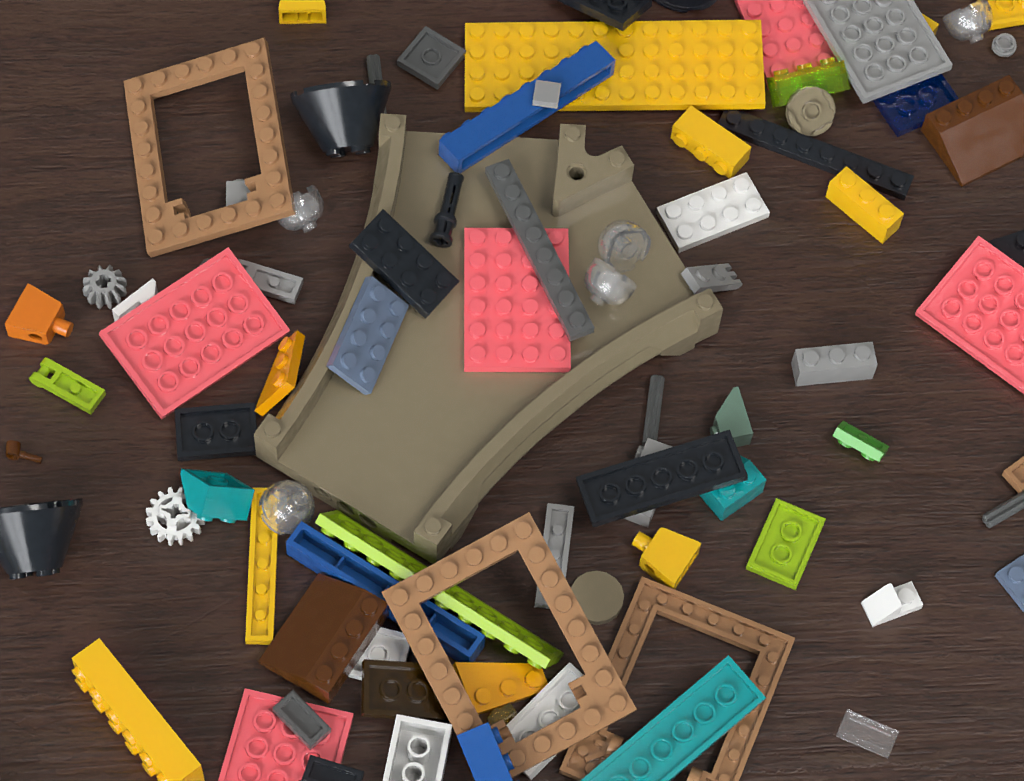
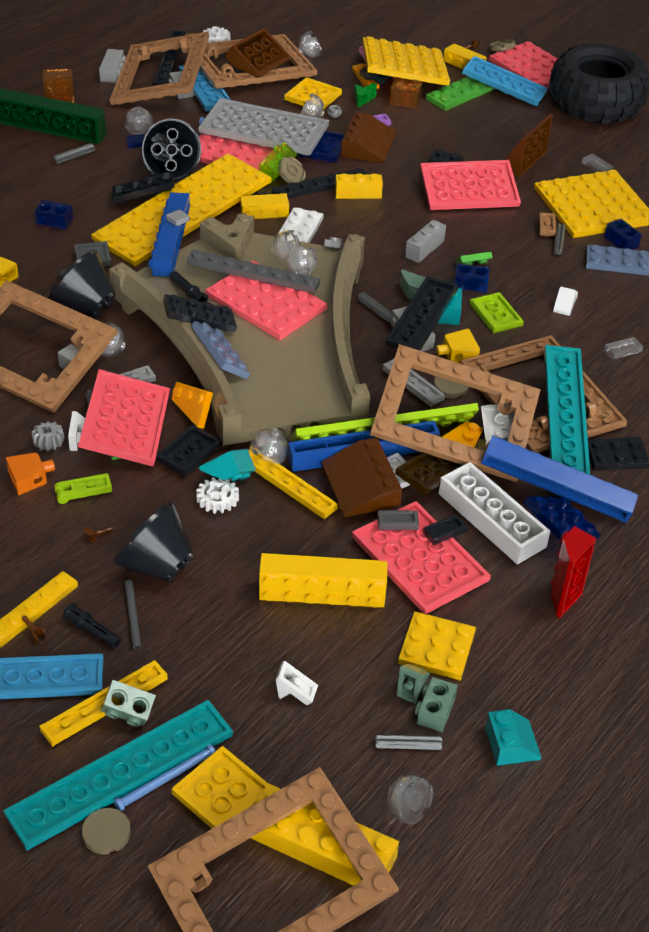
camera: 45 degrees left, 20 degrees down
(812, 470) = (472, 277): none -> clear blue brick

